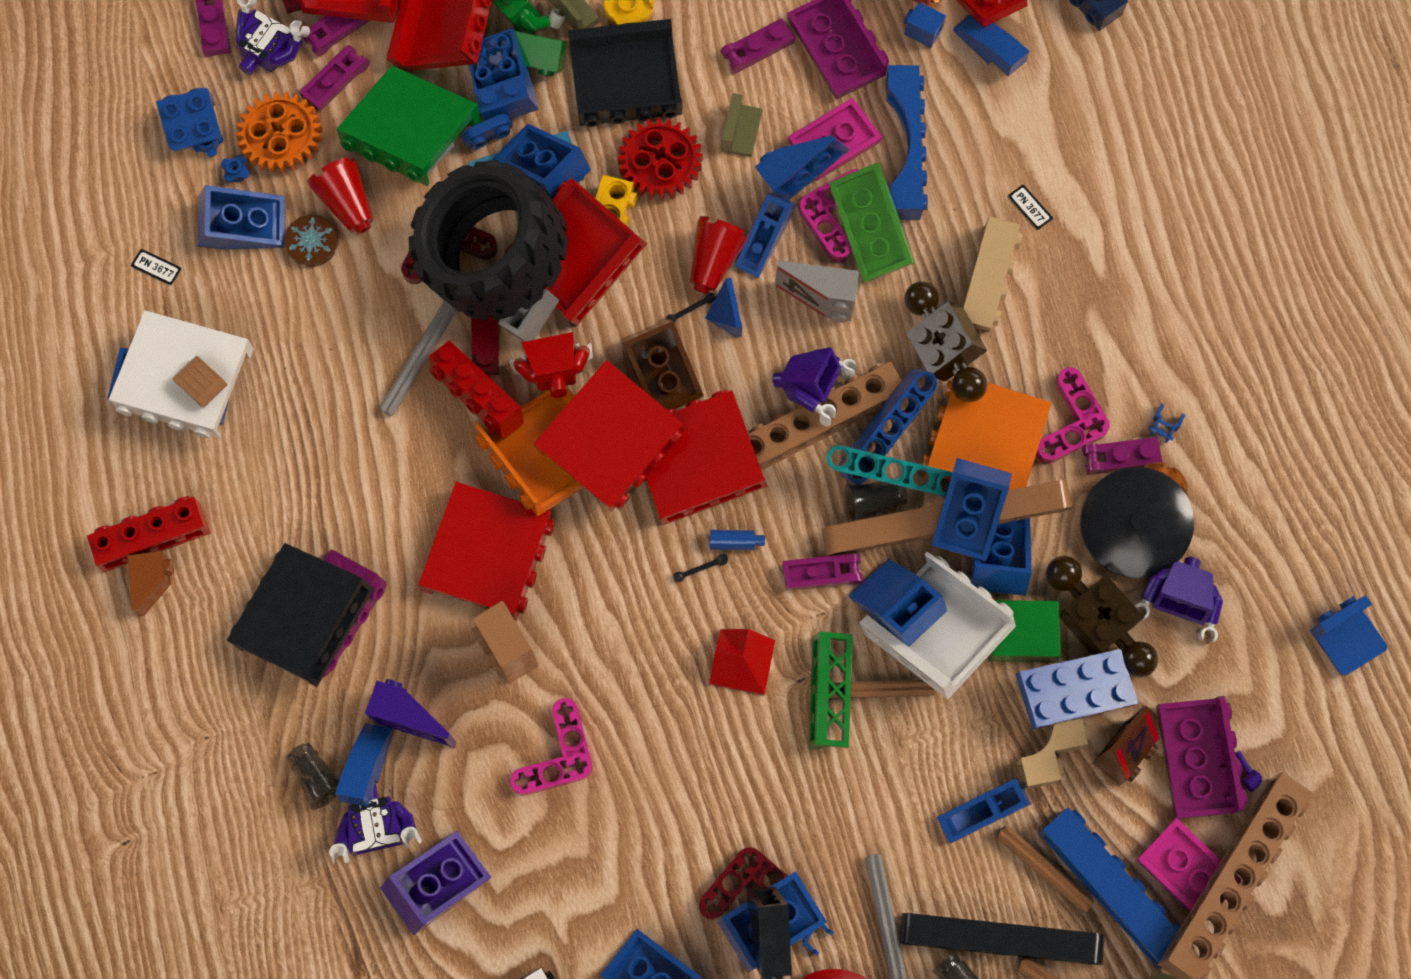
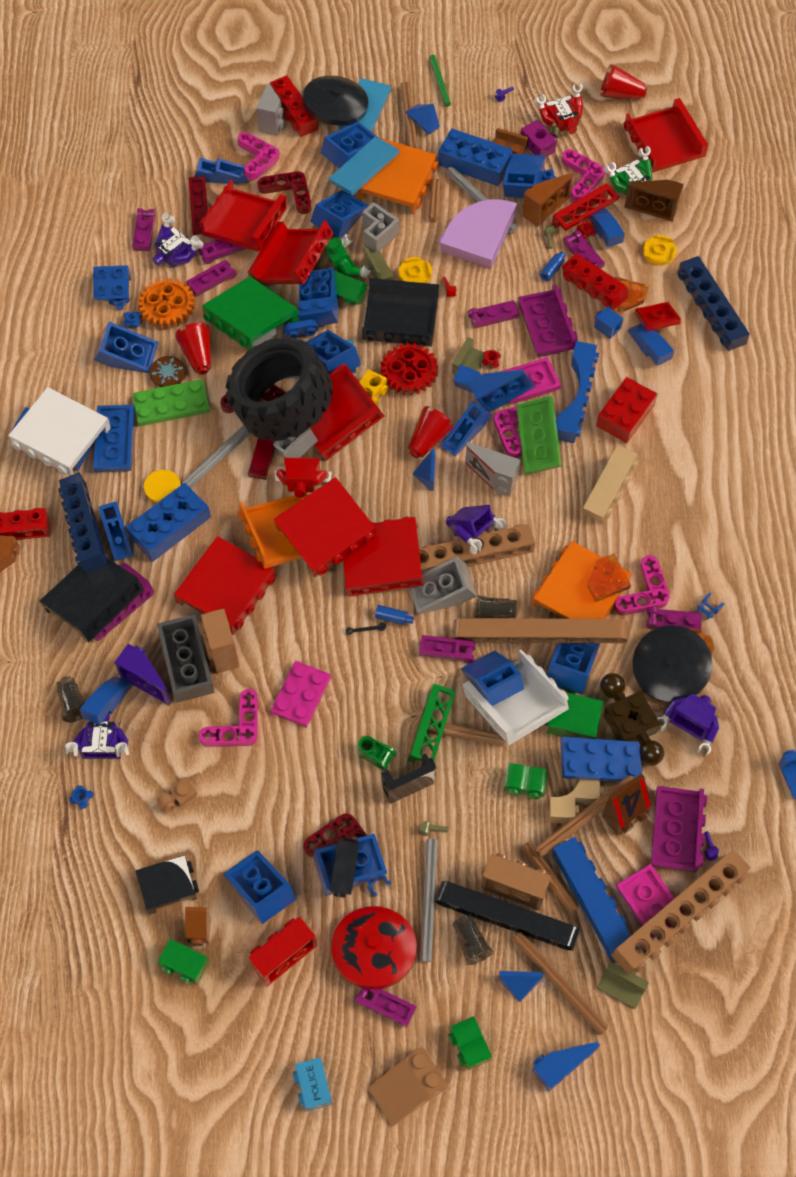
camera: 15 degrees right, 10 degrees down
(156, 266) = (64, 368): sticker -> none
(199, 381) = (69, 436): medium nougat piece -> none
(268, 376) = (115, 447): none -> blue plate
(290, 557) = (82, 523): none -> dark blue brick
(305, 505) = (115, 531): none -> blue slope
(329, 287) = (171, 402): none -> bright green plate
(353, 420) = (160, 484): none -> yellow tile
(361, 914) = (81, 791): none -> blue plate
(383, 490) = (168, 522): none -> blue brick
(434, 882) = (129, 786): dark purple slope -> none
(461, 676) = (185, 658): none -> dark grey brick
(476, 390) = (246, 482): red brick -> none
(509, 873) = (181, 793): none -> medium nougat plate
(636, 686) = (300, 694): none -> dark pink plate
(662, 365) = (374, 493): reddish brown slope -> none
(688, 22) = (450, 290): none -> red hand
(709, 298) = (389, 469): black hinge -> none
(742, 660) = (377, 693): red slope -> none
(746, 156) = (463, 376): none -> blue brick
(766, 749) = (379, 754): none -> green piece
(775, 110) = (491, 354): none -> red plate
(795, 482) = (444, 587): none -> light grey slope
(802, 800) = (410, 782): none -> black panel
(859, 840) = (426, 827): none -> olive hand
(879, 466) = (520, 590): teal beam -> none
(900, 419) = (524, 561): blue beam -> none
(946, 341) = (569, 518): dark brown brick -> none
(971, 509) = (555, 624): blue slope -> none
(979, 740) = (525, 780): none -> green brick
(983, 154) = (626, 410): none -> red brick
(984, 810) = (517, 827): blue slope -> none
(1005, 890) = (515, 881): none -> medium nougat brick
(1021, 420) = (607, 578): none -> clear orange plate
(1030, 207) = (651, 450): sticker -> none
(1075, 773) = (578, 821): none -> medium nougat axle

